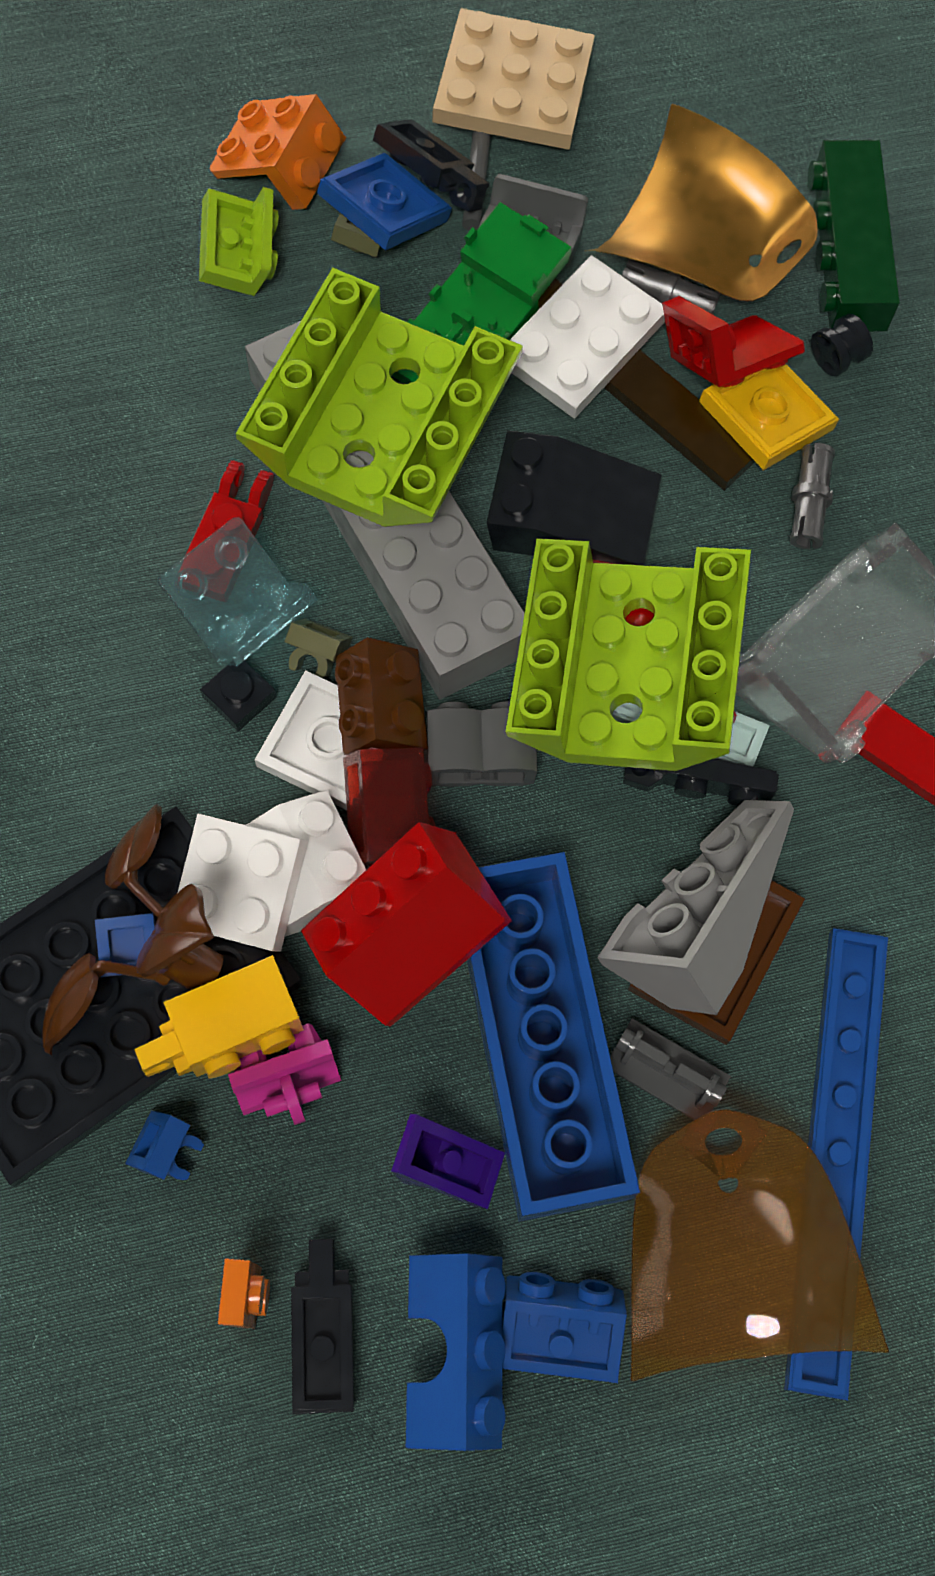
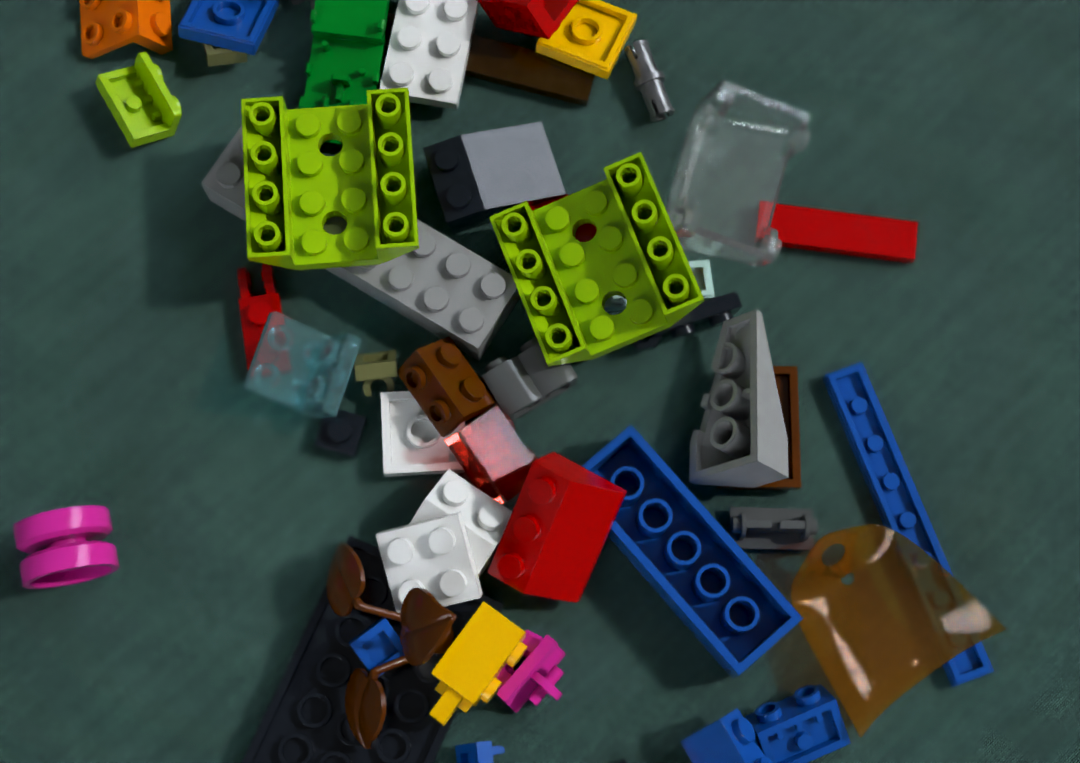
camera: 30 degrees left, 5 degrees up
(447, 1162) = (670, 668): dark purple slope -> none

